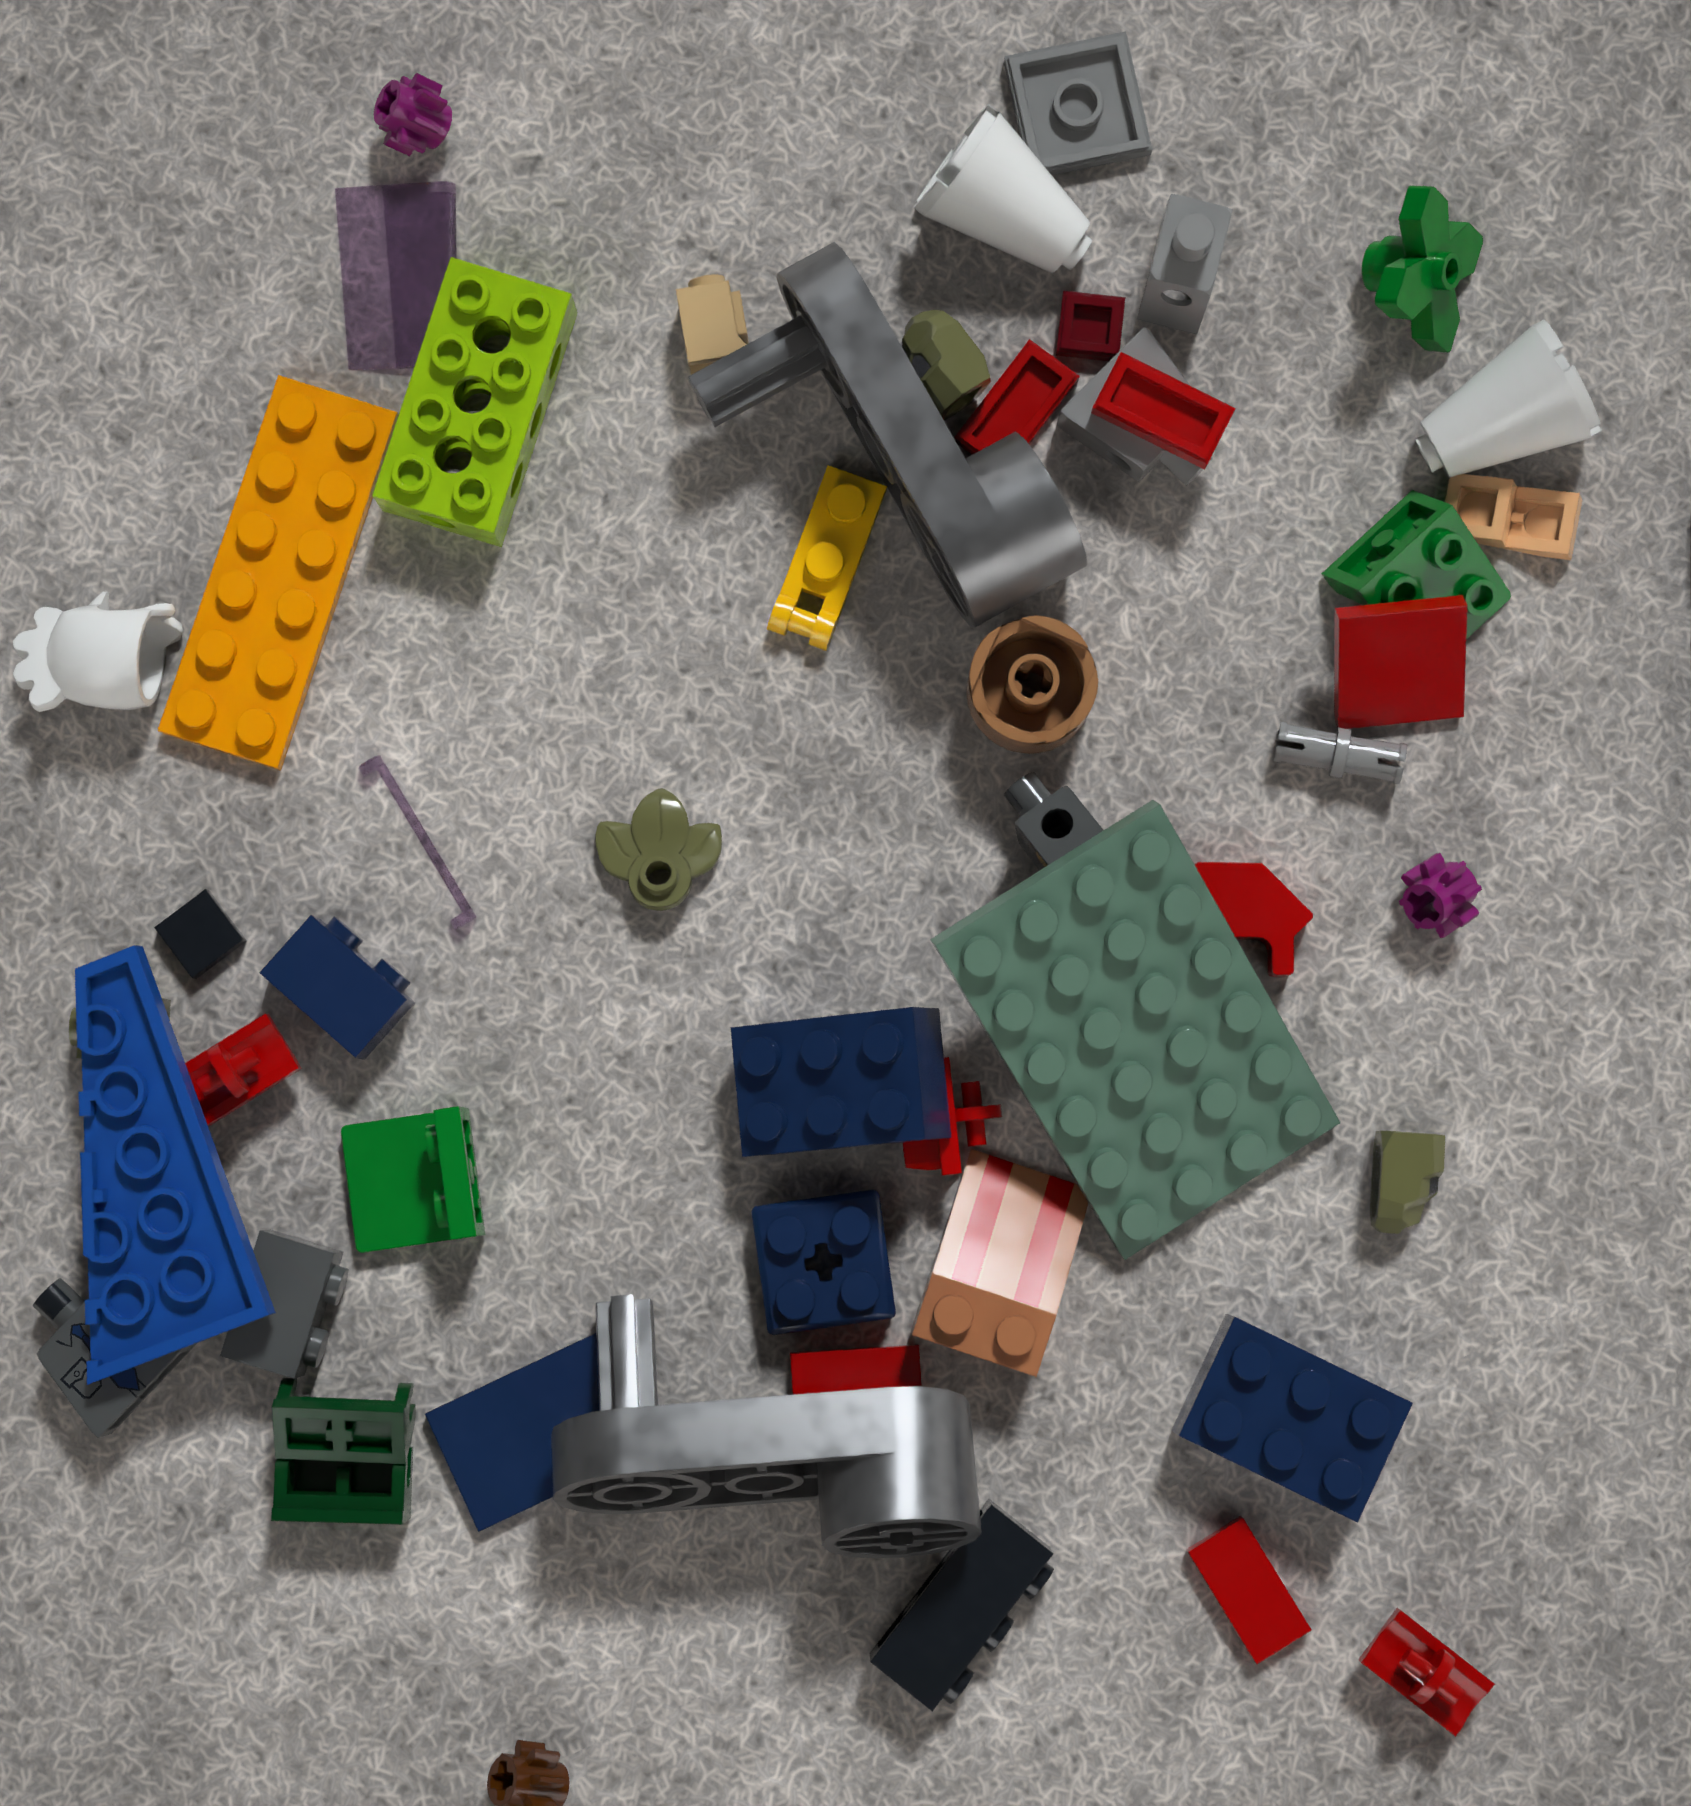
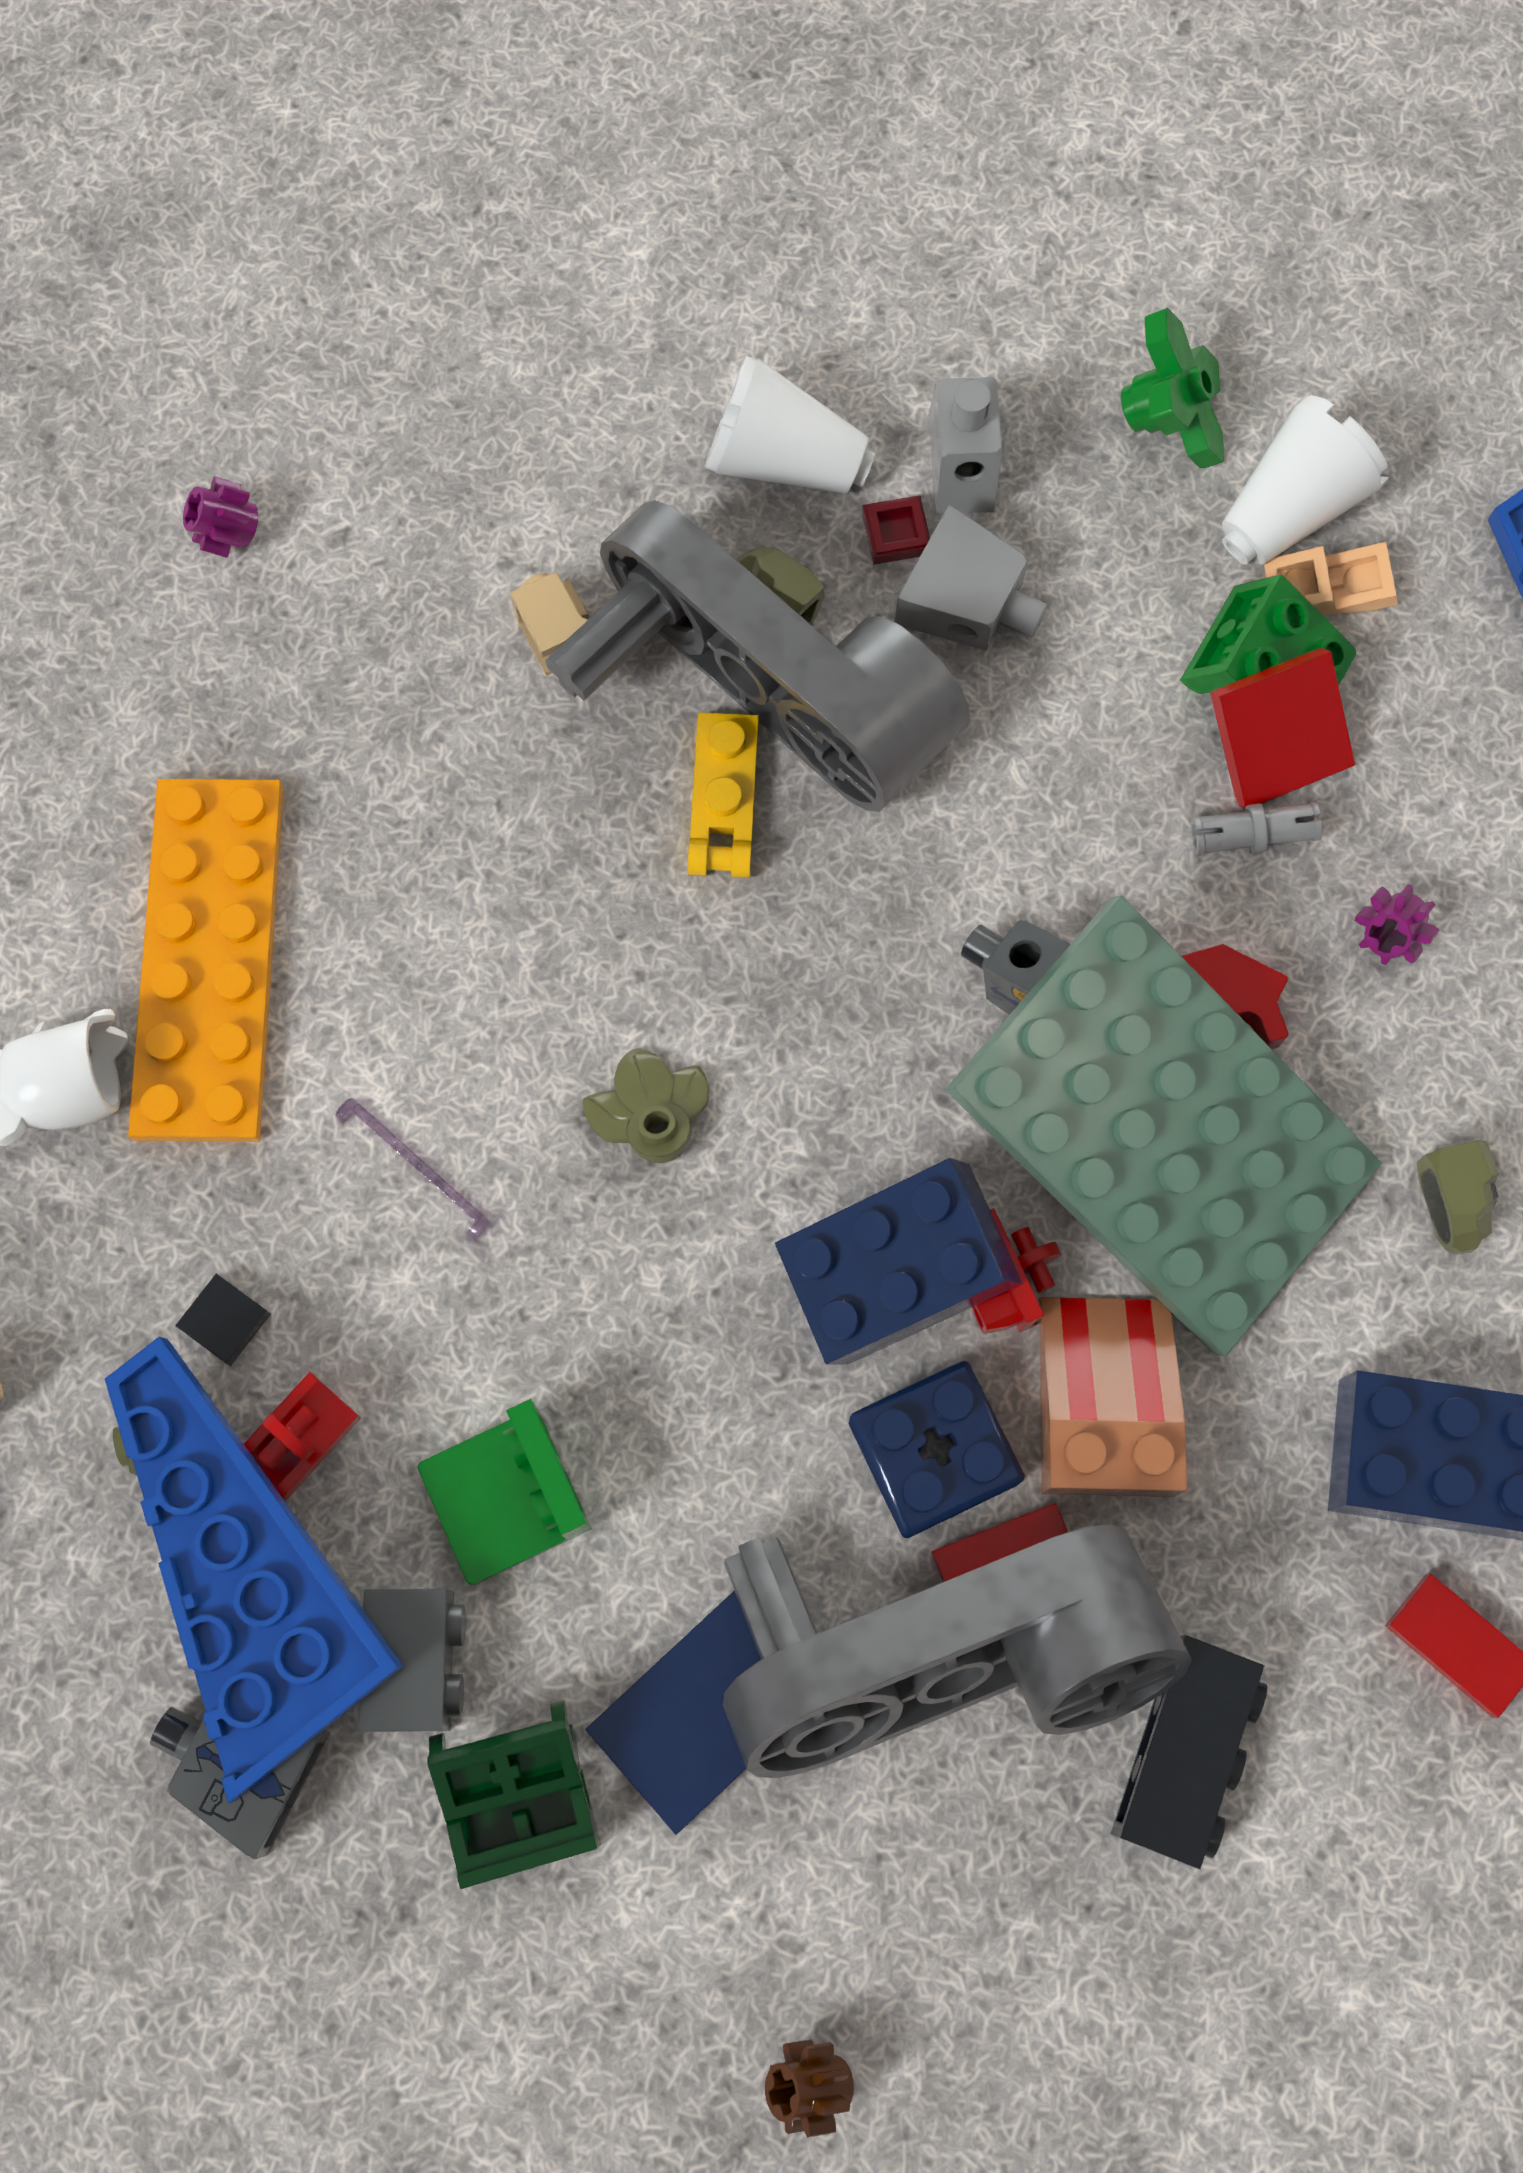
camera: 20 degrees left, 10 degrees down
(338, 985) = (375, 1325): dark blue brick -> none
(392, 267) = (247, 663): clear purple piece -> none
(450, 369) = (324, 720): lime brick -> none
(1014, 652) = (961, 812): medium nougat brick -> none
(1019, 400) = (858, 593): red tile -> none
(1079, 103) = (825, 346): light grey tile -> none
(1162, 410) = (992, 568): red tile -> none

